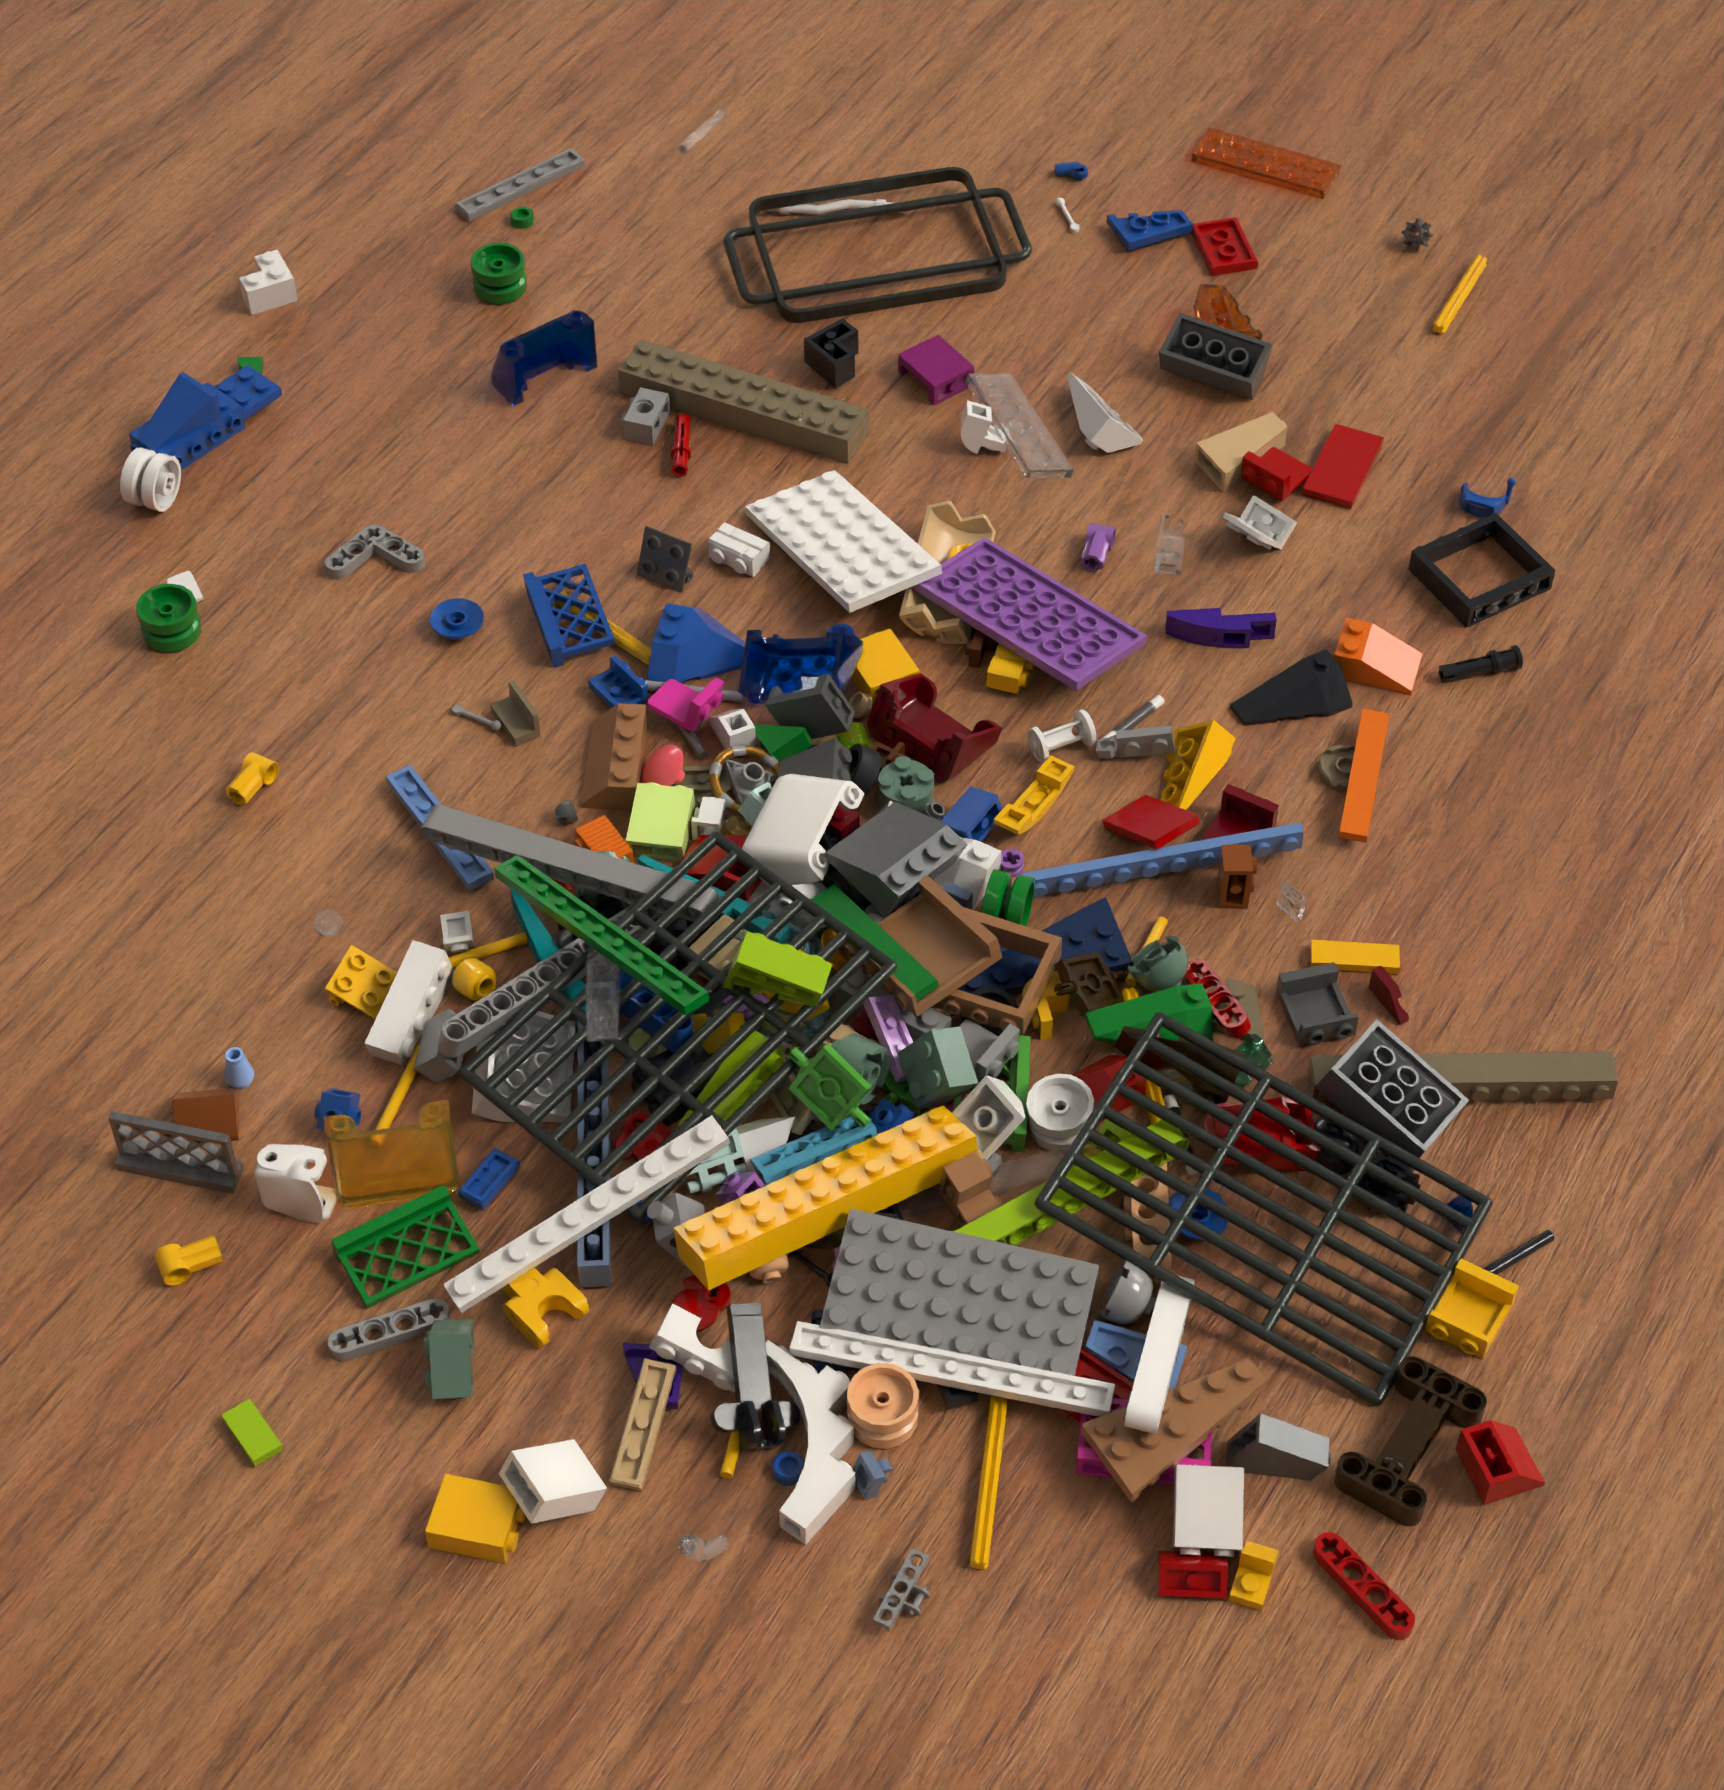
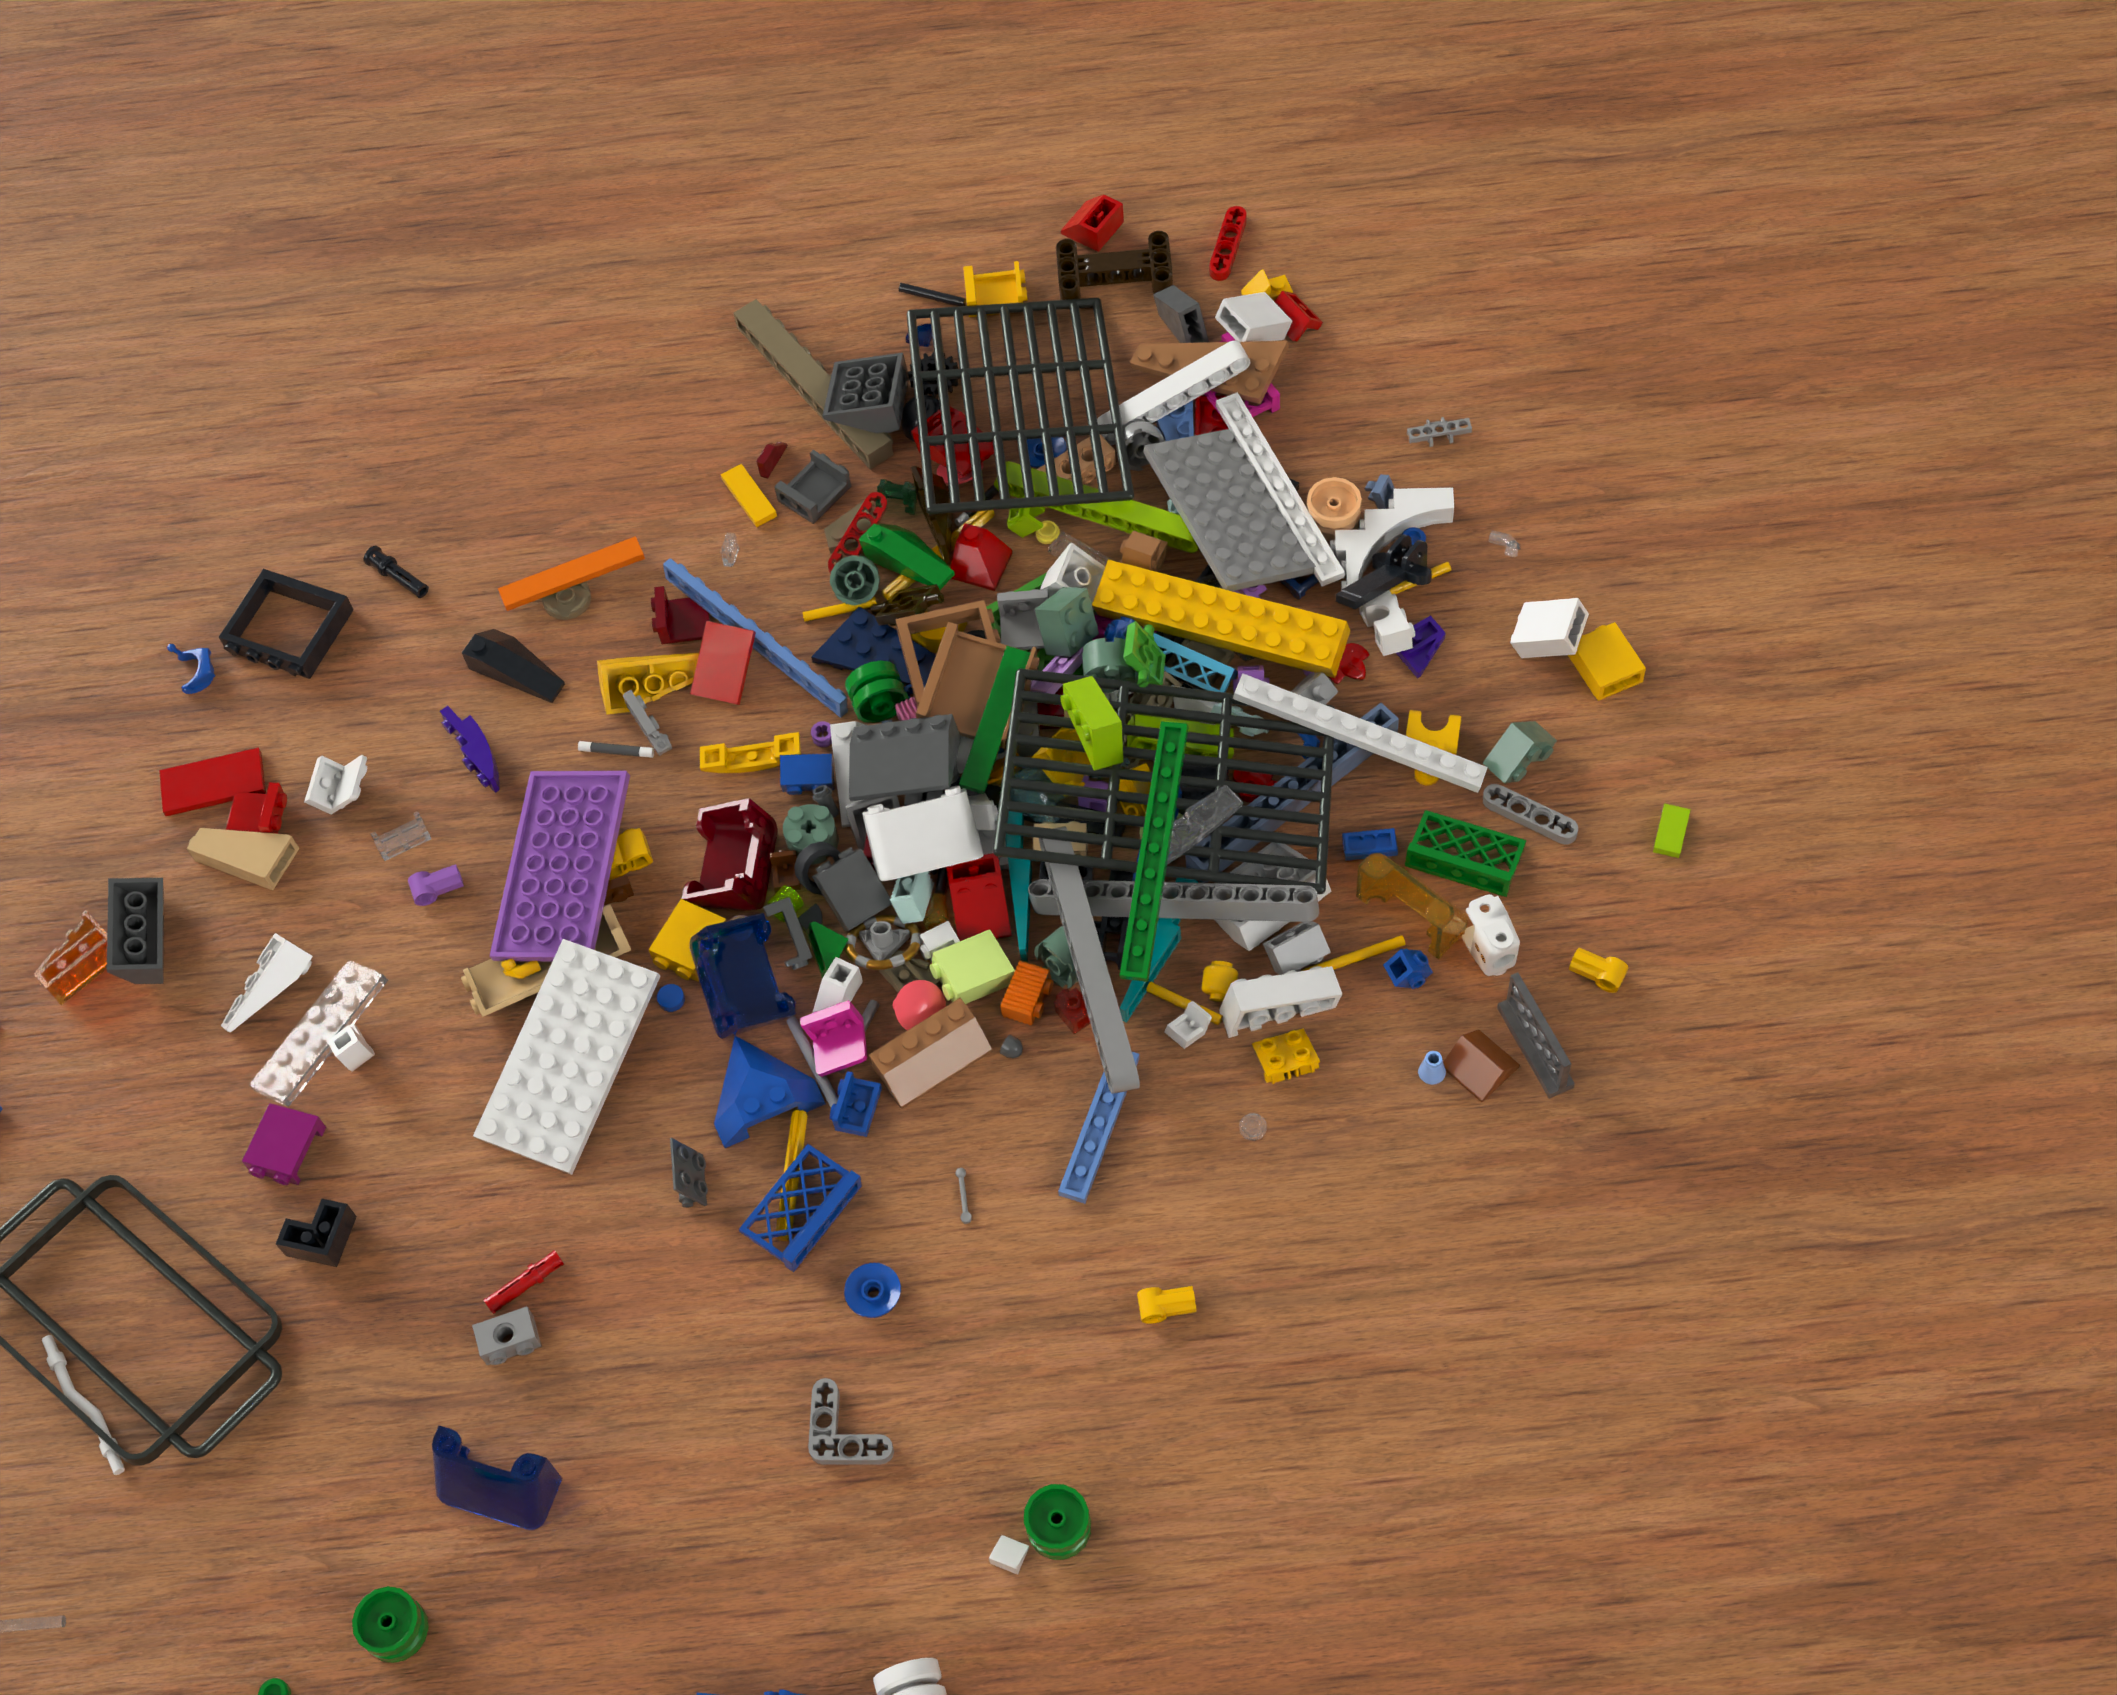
camera: 120 degrees left, 10 degrees up
(517, 716) = (941, 1161): dark tan panel -> none
(642, 1425) = (1462, 621): tan tile -> none
(738, 550) = (628, 1135): white brick -> none
(746, 401) = (433, 1271): dark tan brick -> none
(988, 1483) = (1333, 436): yellow axle -> none
(1043, 742) = (692, 780): white hose -> none
(1058, 1110) = (1029, 554): white wheel -> none
(1235, 876) = (738, 582): dark orange brick -> none
(1376, 657) = (437, 638): orange slope -> none

